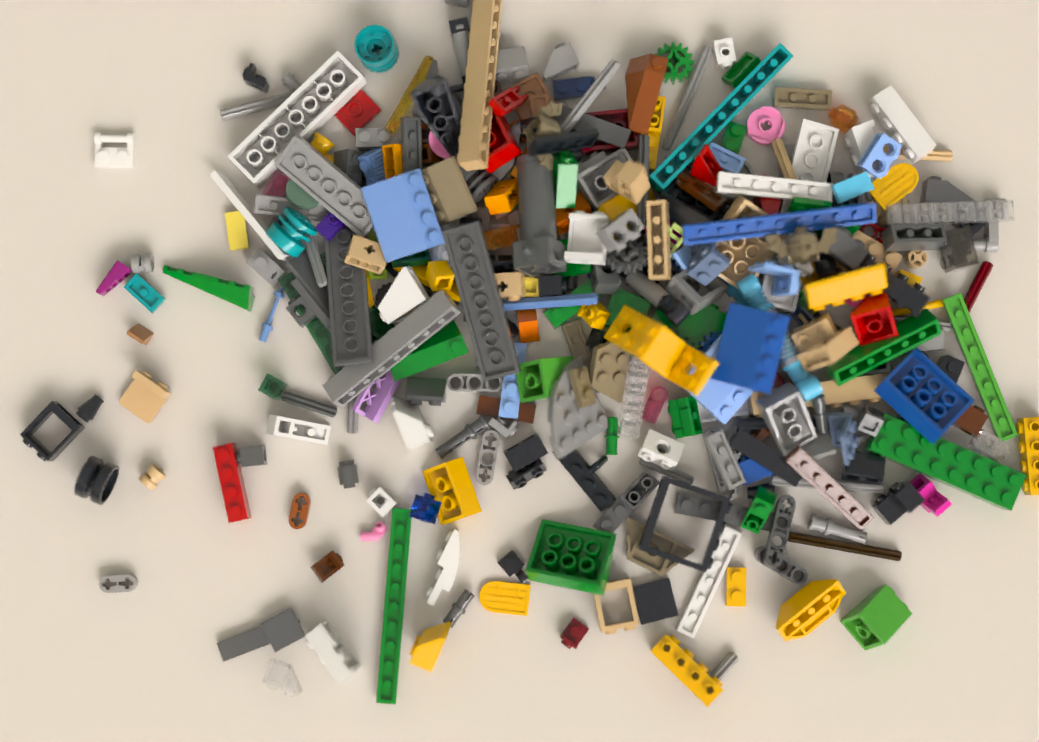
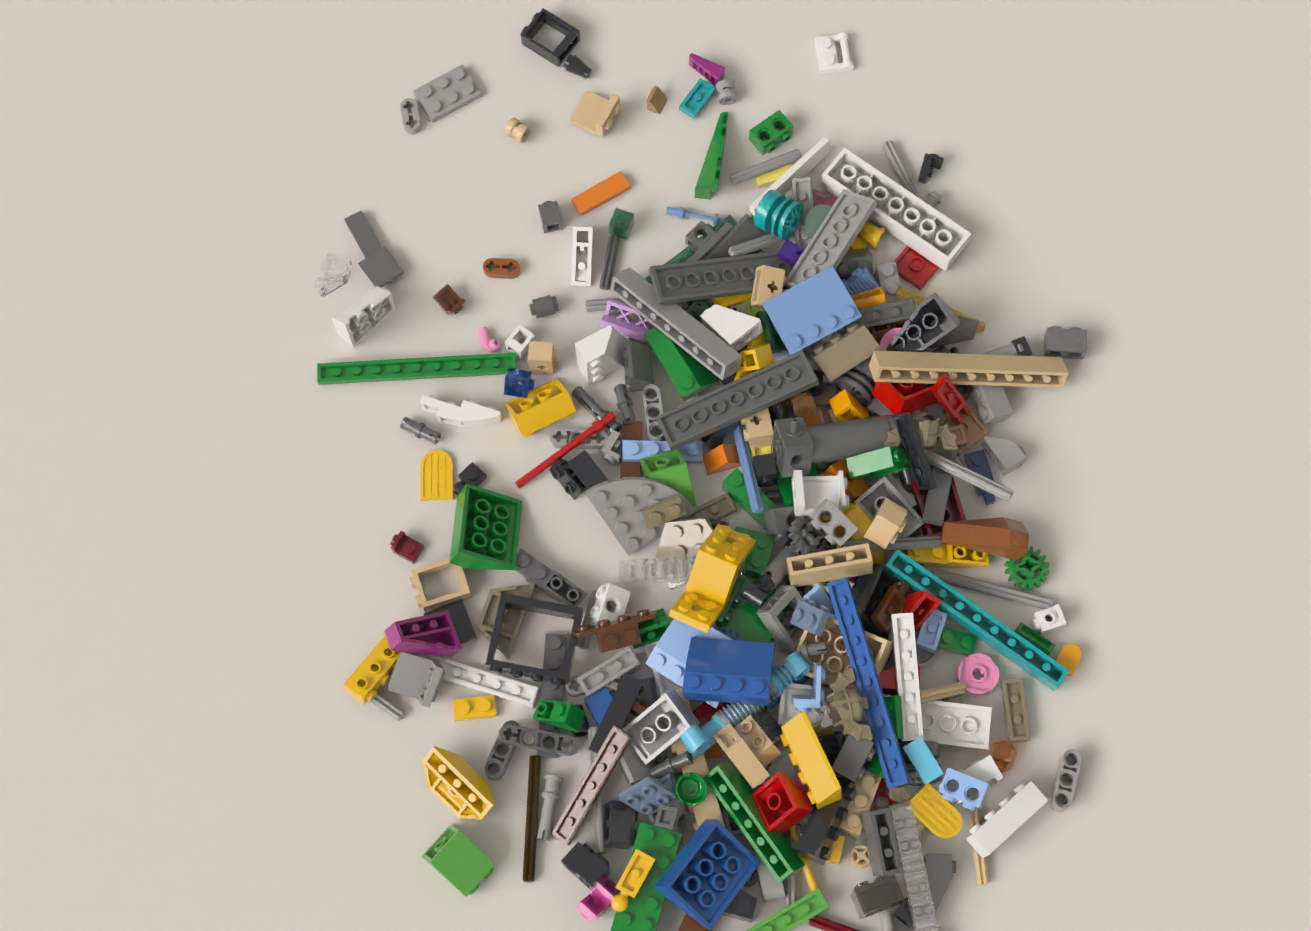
camera: 85 degrees right, 15 degrees down
(96, 480) = (507, 79): black wheel -> none
(98, 543) = (447, 93): none -> light grey plate
(191, 228) = (768, 130): none -> green brick
(232, 237) = (766, 166): none -> light grey axle
(232, 482) = (520, 201): red brick -> none
(233, 402) = (601, 193): none -> orange tile
(266, 267) = (741, 198): light grey torso -> none
(369, 41) = (981, 271): teal wheel -> none
(405, 482) = (542, 358): none -> tan brick
(428, 646) = (377, 403): yellow slope -> none
(459, 409) = (624, 403): none -> dark grey pin
(482, 438) = (597, 426): none -> red bar
(588, 479) = (571, 537): black plate -> none
(594, 315) = (742, 517): yellow brick -> none
(611, 436) = (613, 558): green axle -> none
(653, 407) = (655, 596): clear pink piece -> none
(669, 625) = (425, 635): none -> magenta wedge
(691, 445) = (616, 633): none -> reddish brown bracket
(705, 636) = (416, 677): none -> light grey bracket
(737, 267) = (814, 649): none -> dark grey pin
(761, 43) = (1069, 657): none -> light orange piece
(847, 398) = (691, 789): none -> green hair
(880, 64) = (1072, 773): none -> light grey beam
(923, 463) = (632, 879): none -> yellow plate

